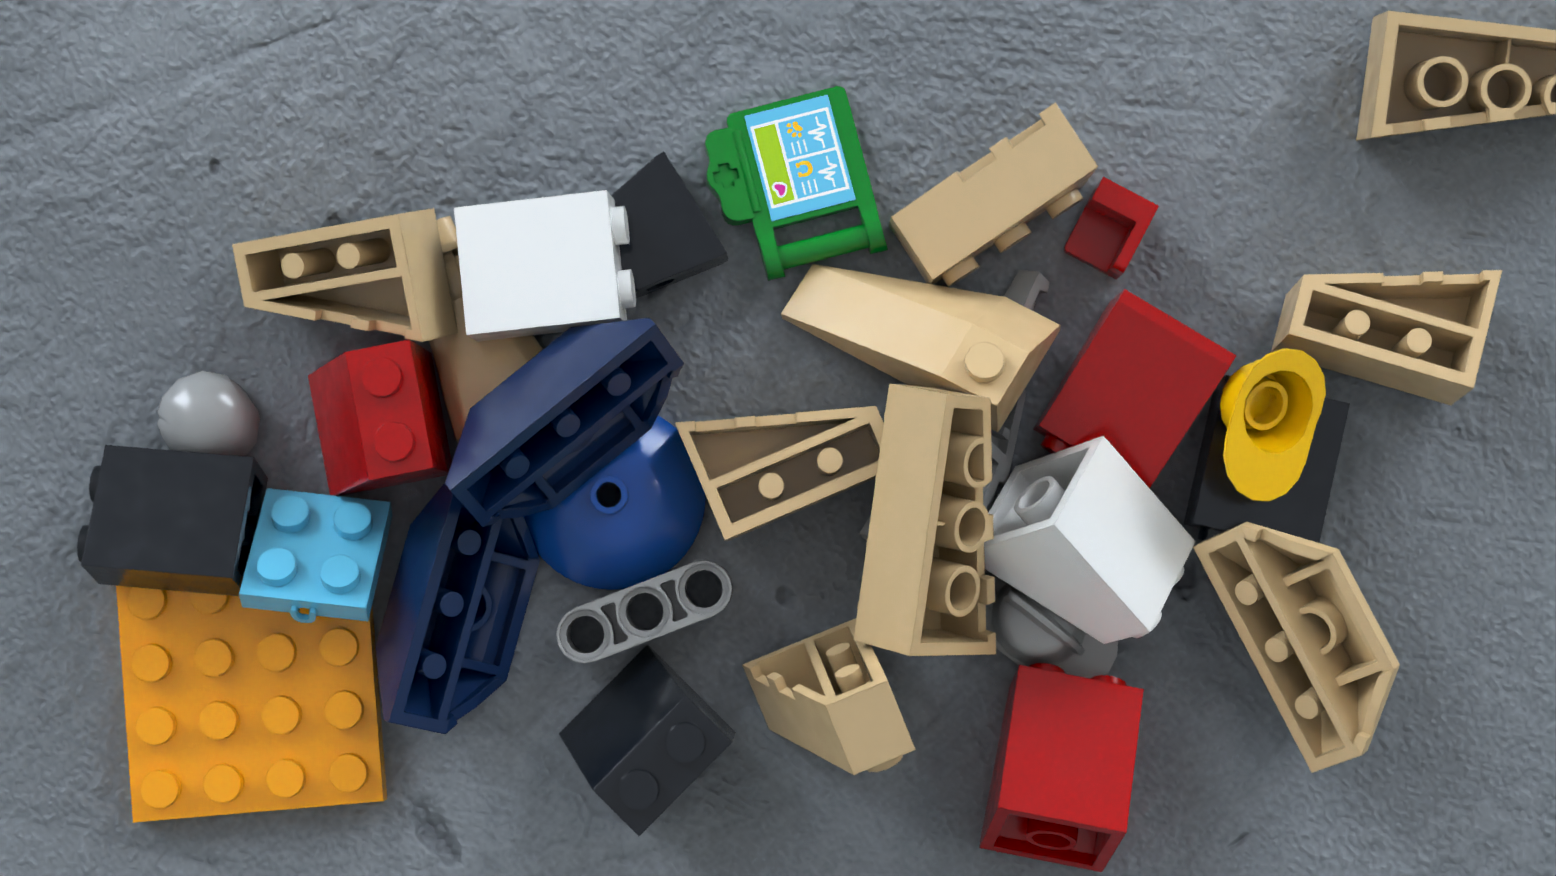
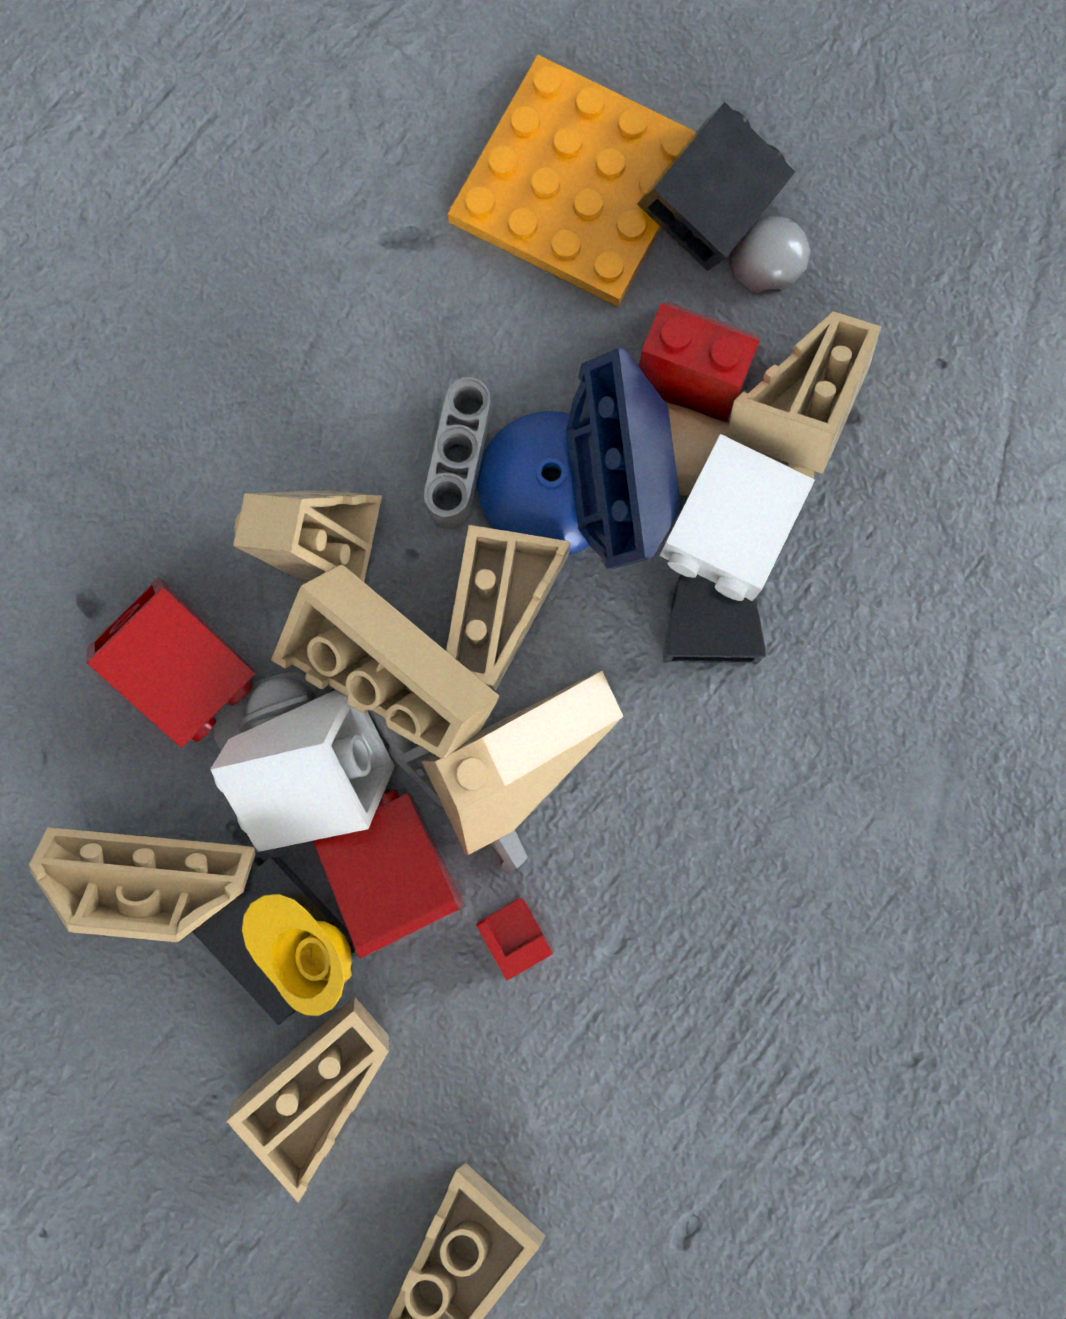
camera: 120 degrees right, 5 degrees down
(316, 555) = (634, 261): medium azure plate -> none
(453, 614) = (532, 322): dark blue wedge -> none
(645, 739) = (369, 394): black slope -> none
(792, 167) = (699, 746): piece -> none
(995, 199) = (586, 866): tan wedge -> none

